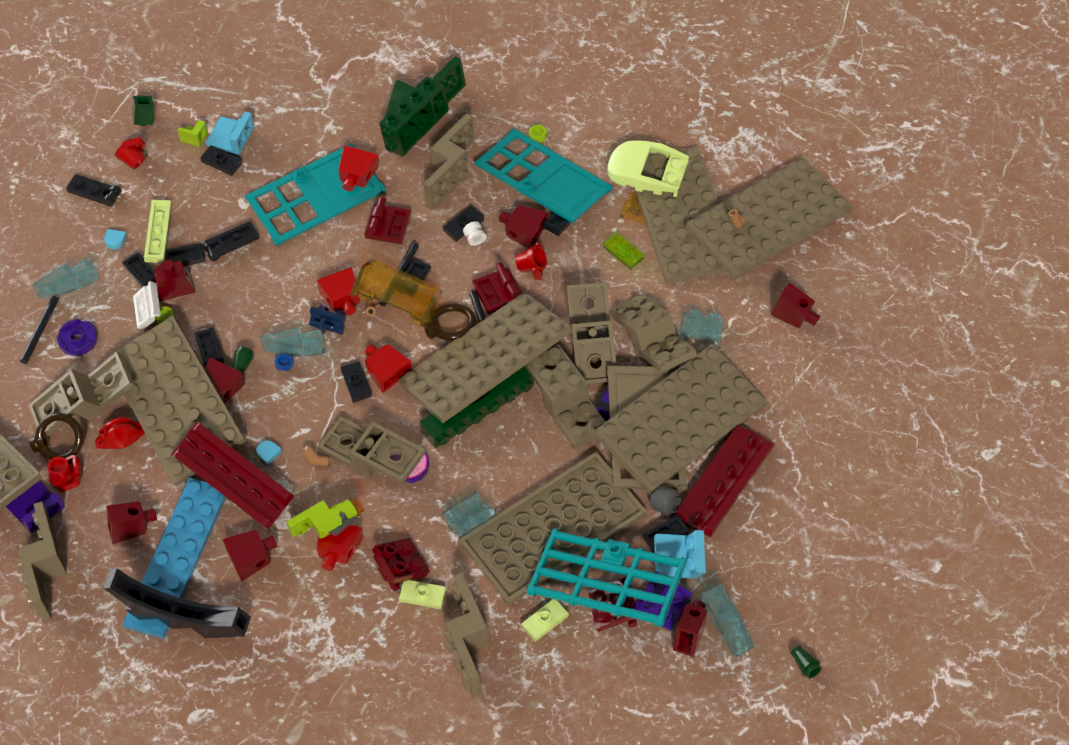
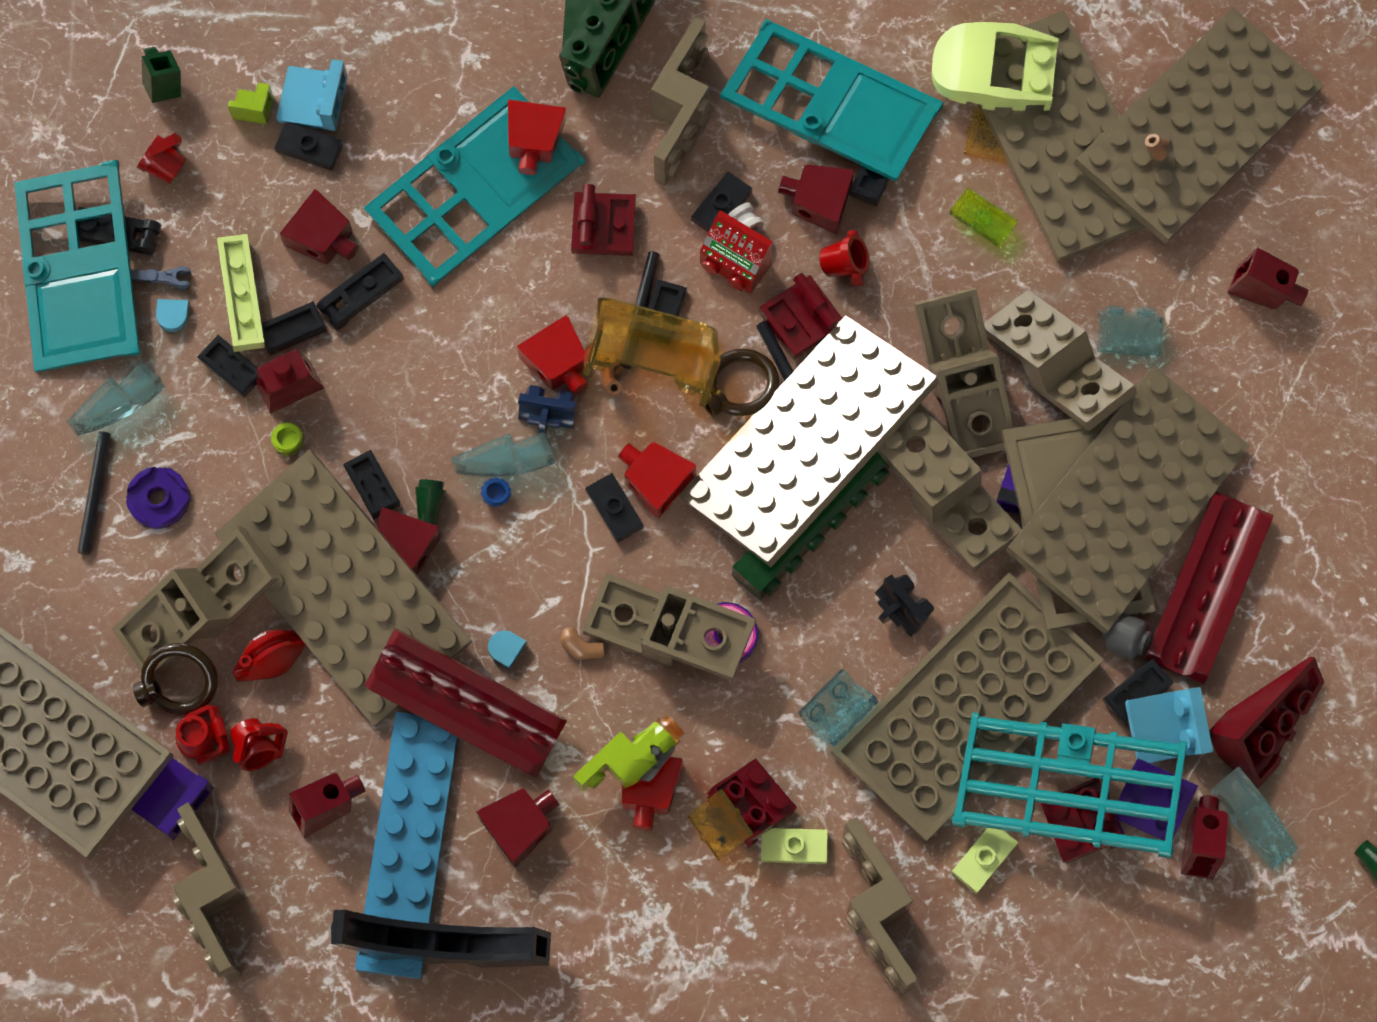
camera: 10 degrees left, 15 degrees up
(63, 223) = (82, 296): none -> teal door
(91, 214) = (169, 277): none -> sand blue piece
(94, 482) = (254, 745): none -> red piece
(146, 305) = (256, 428): white plate -> none
(214, 204) = (319, 231): none -> dark red torso
(376, 571) = (720, 824): none -> clear yellow piece
(464, 247) = (736, 253): none -> red slope
(521, 461) = (900, 606): none -> black hips
(538, 133) = (805, 22): lime tile -> none
(746, 564) = (1262, 723): none -> dark red wedge

